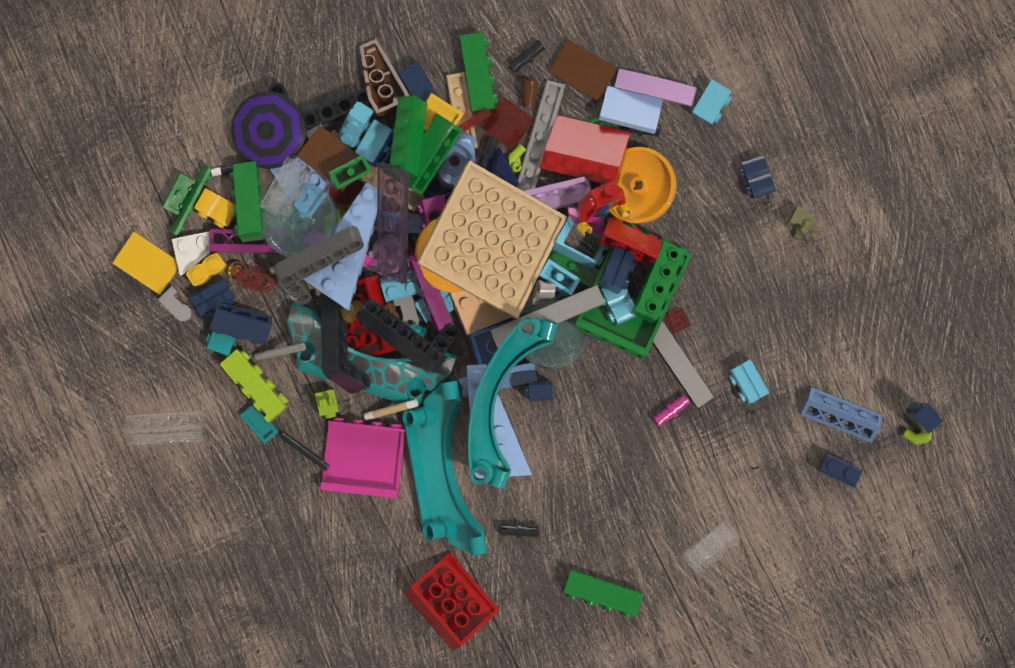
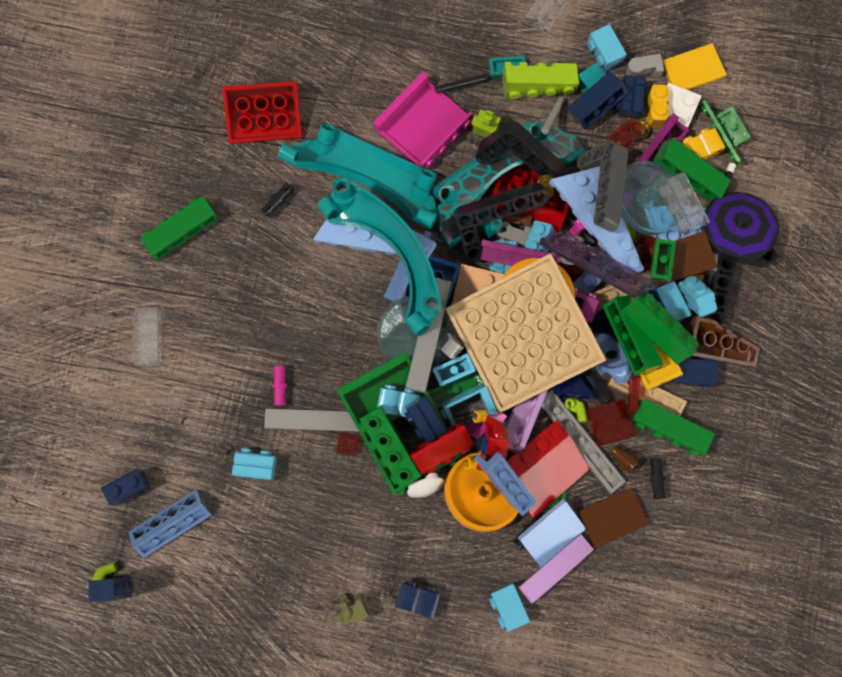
camera: 130 degrees right, 10 degrees down
(183, 350) = (606, 48): none -> medium azure brick
(391, 409) = (445, 166): tan bar -> none
(539, 391) = (373, 289): dark blue brick -> none
(622, 169) = (507, 483): none -> medium blue fence
(668, 232) = (426, 486): none -> white dish

